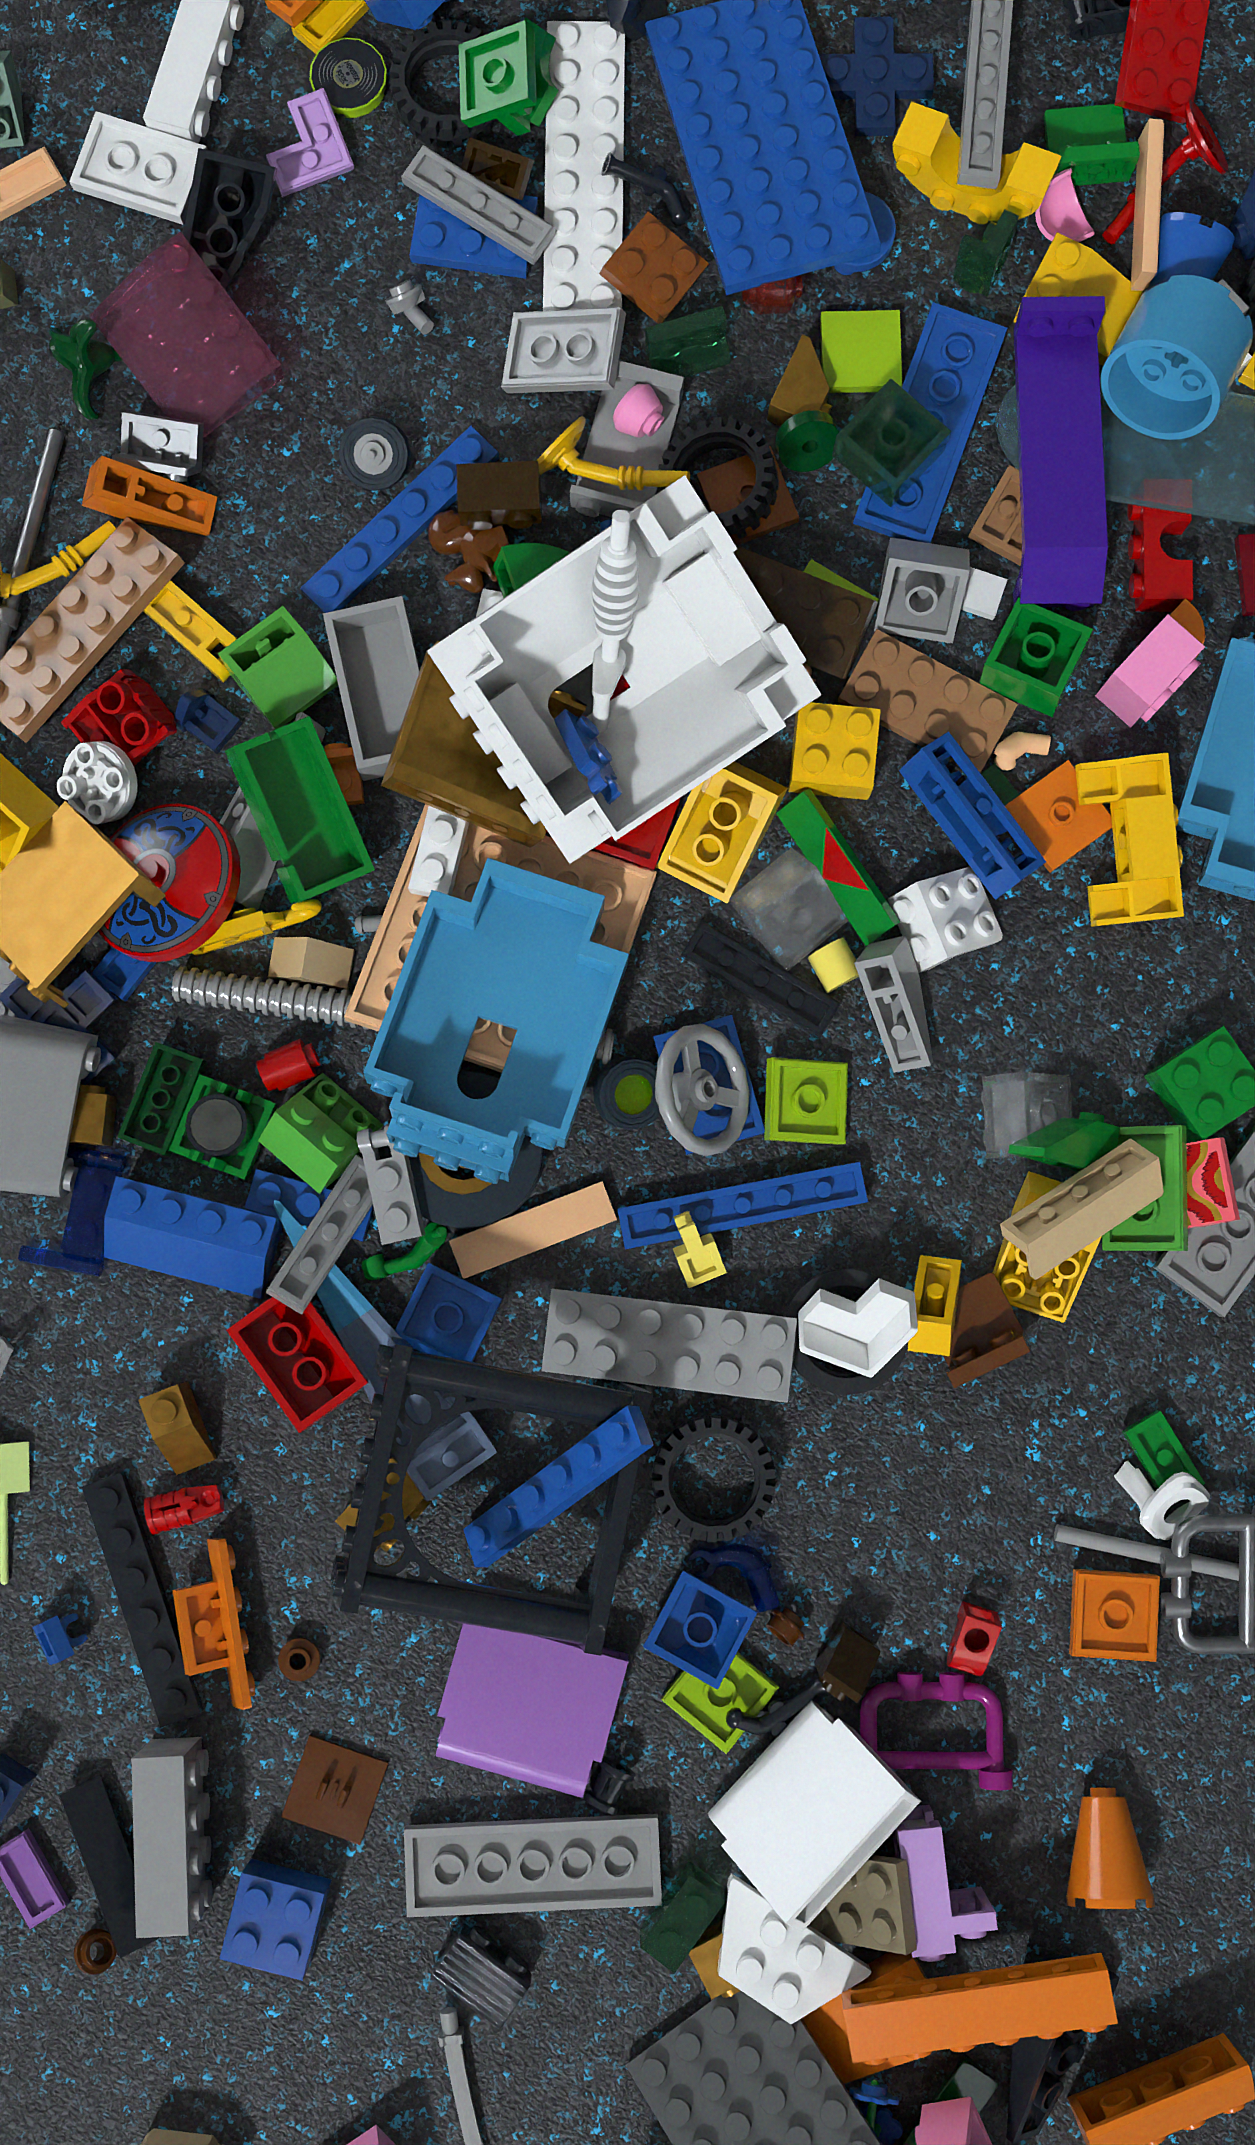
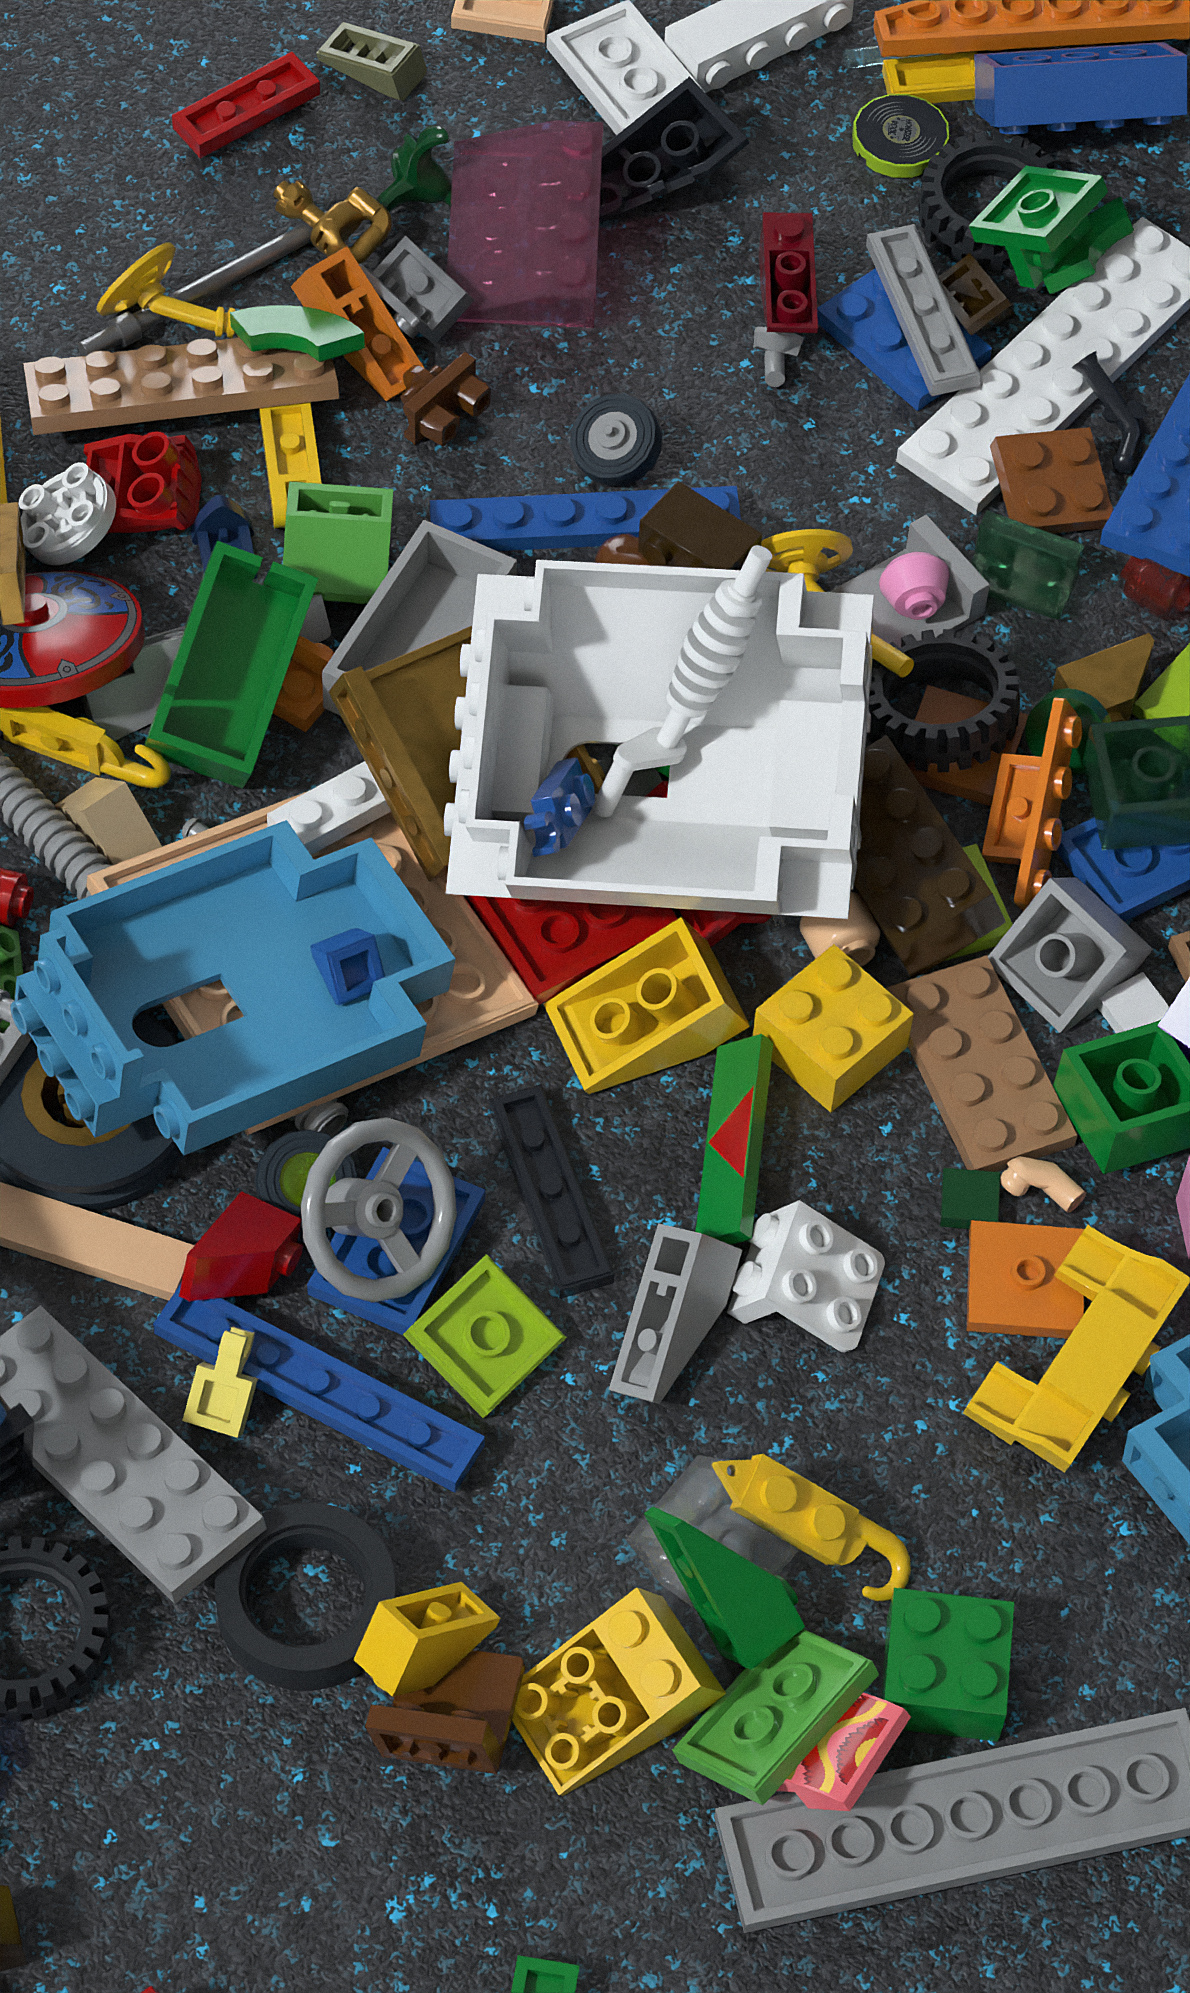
camera: 35 degrees right, 25 degrees down
(68, 440) = (338, 223): none -> pearl gold piece
(119, 536) = (297, 329): none -> tile
(247, 493) = (437, 393): none -> reddish brown hips
(321, 149) = (810, 173): lavender tile -> none
(378, 247) = (788, 272): none -> dark red slope
(545, 948) = (348, 964): none -> blue slope
(563, 350) = (890, 483): light grey tile -> none
(637, 1165) = (242, 1251): none -> red slope
(789, 908) = (643, 1142): clear slope -> none
(825, 514) = (1028, 804): none -> orange bracket
(834, 964) = (638, 1227): light yellow brick -> none
(861, 1332) = (309, 1579): white panel -> none
(971, 815) = (923, 1194): blue brick -> none
(1076, 1066) = (810, 1518): none -> yellow plate
(1085, 1207) = (680, 1648): tan panel -> none

